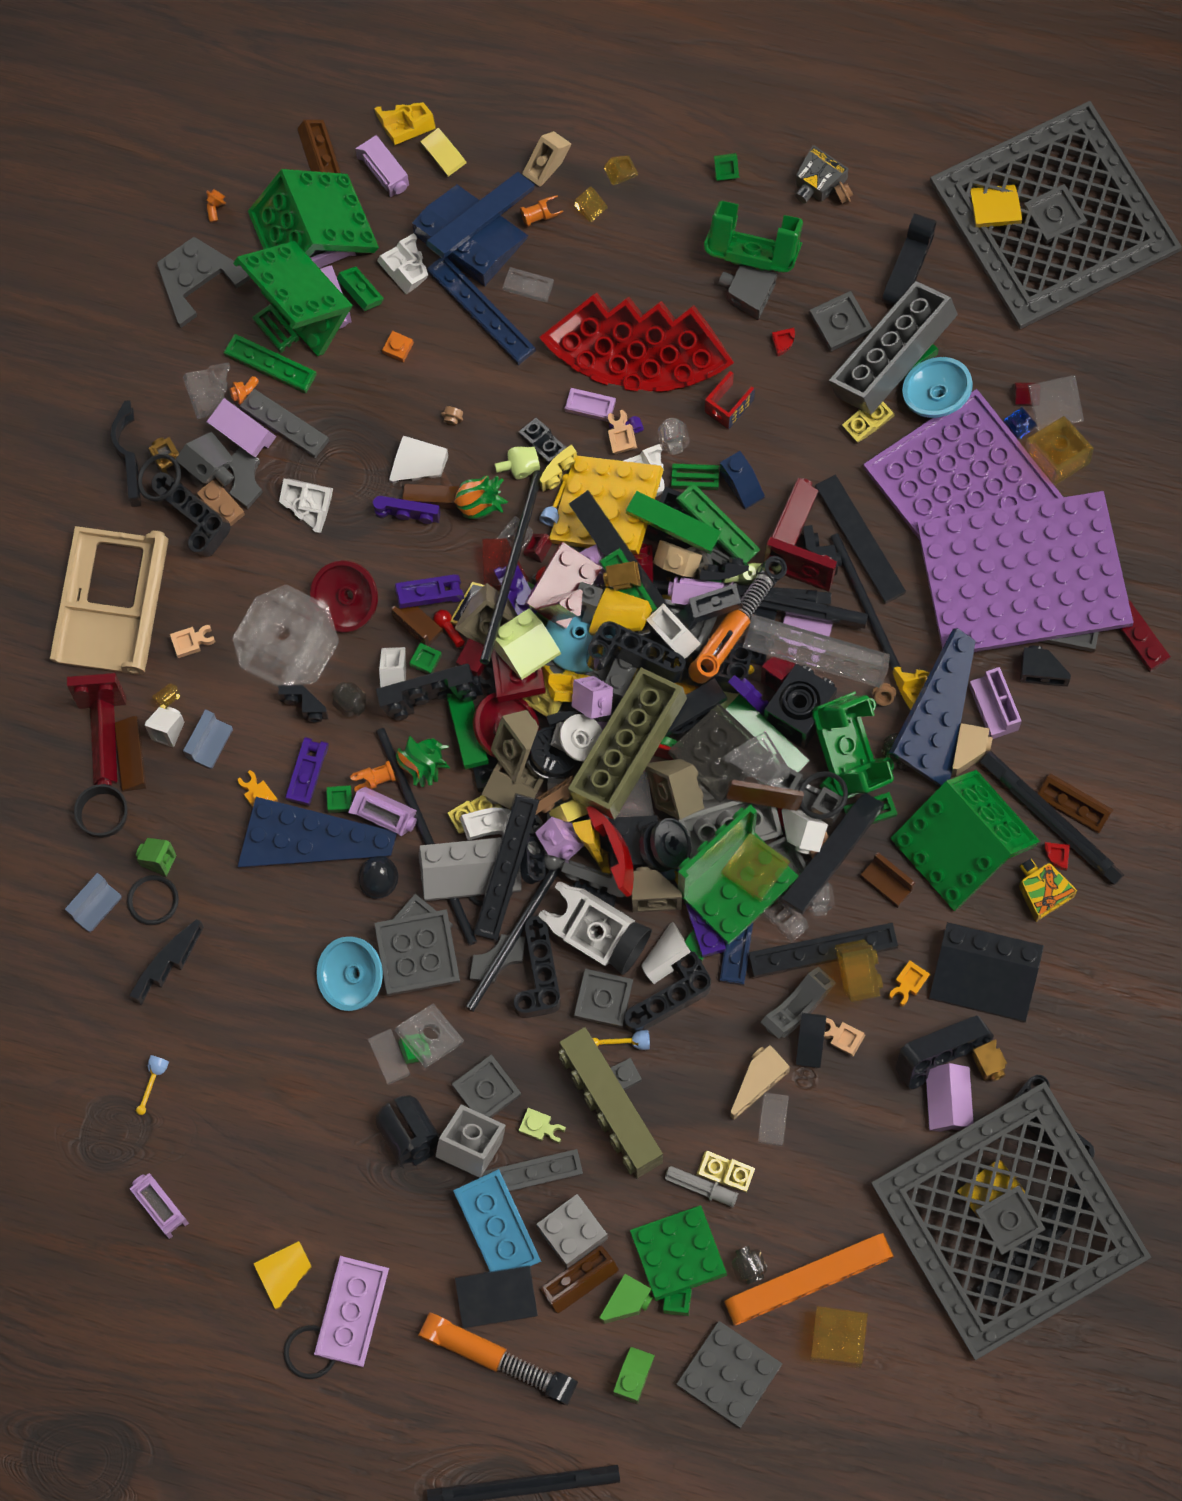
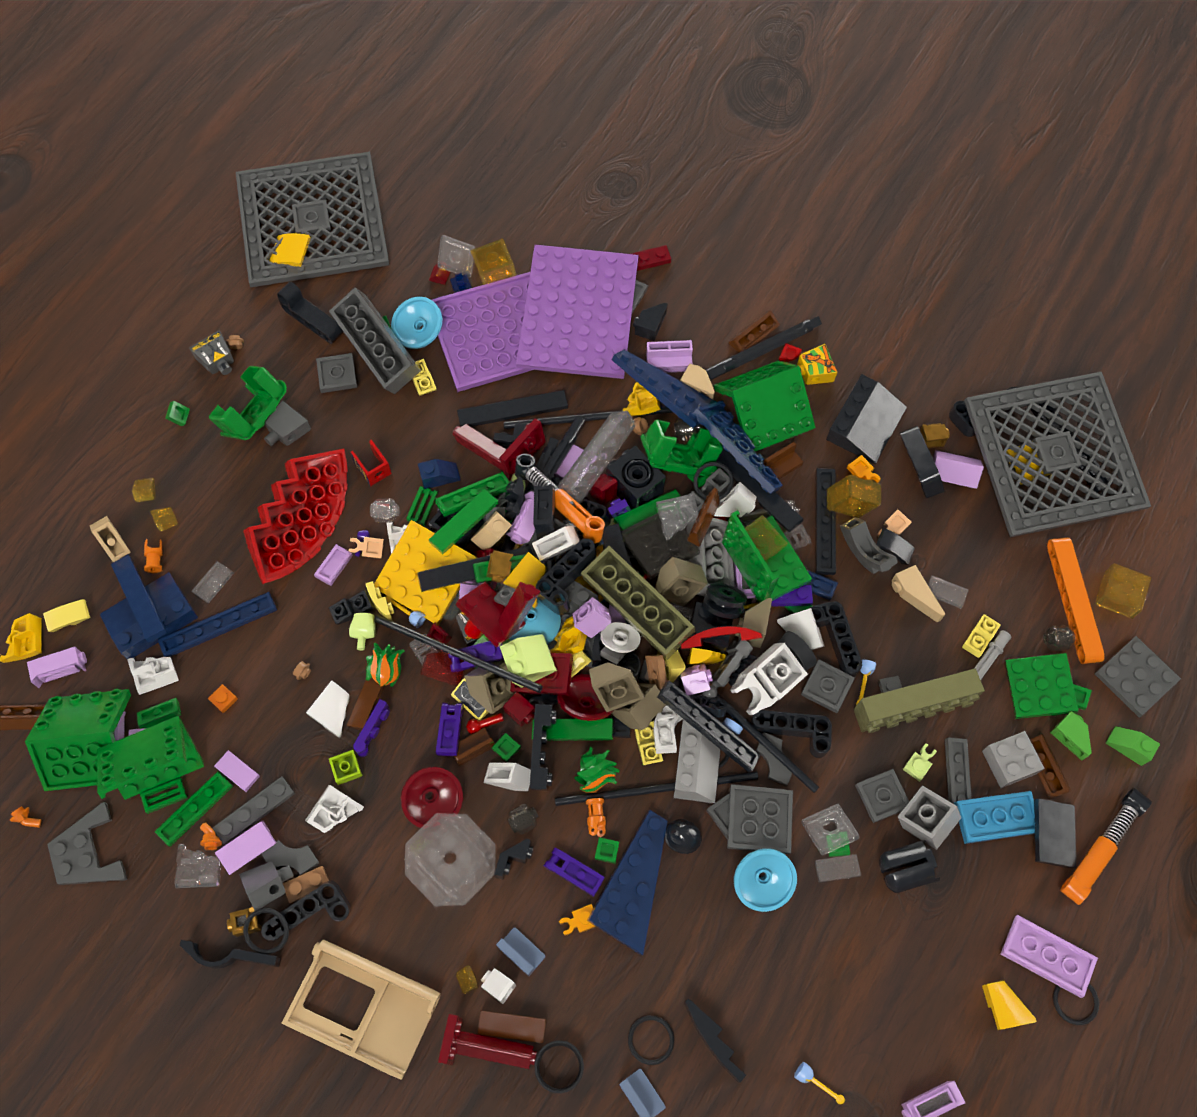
camera: 80 degrees left, 5 degrees down
(156, 855) = (615, 1025): bright green slope -> none
(188, 642) = (425, 945): light nougat plate -> none
(322, 390) = (237, 771): none -> lavender tile
(356, 498) = (345, 767): none -> lime piece
(383, 811) = (630, 815): lavender window -> none
(521, 899) = (733, 726): none -> light blue tile
(783, 340) = (335, 416): red tile -> none
(887, 804) = (737, 443): none -> dark blue wing

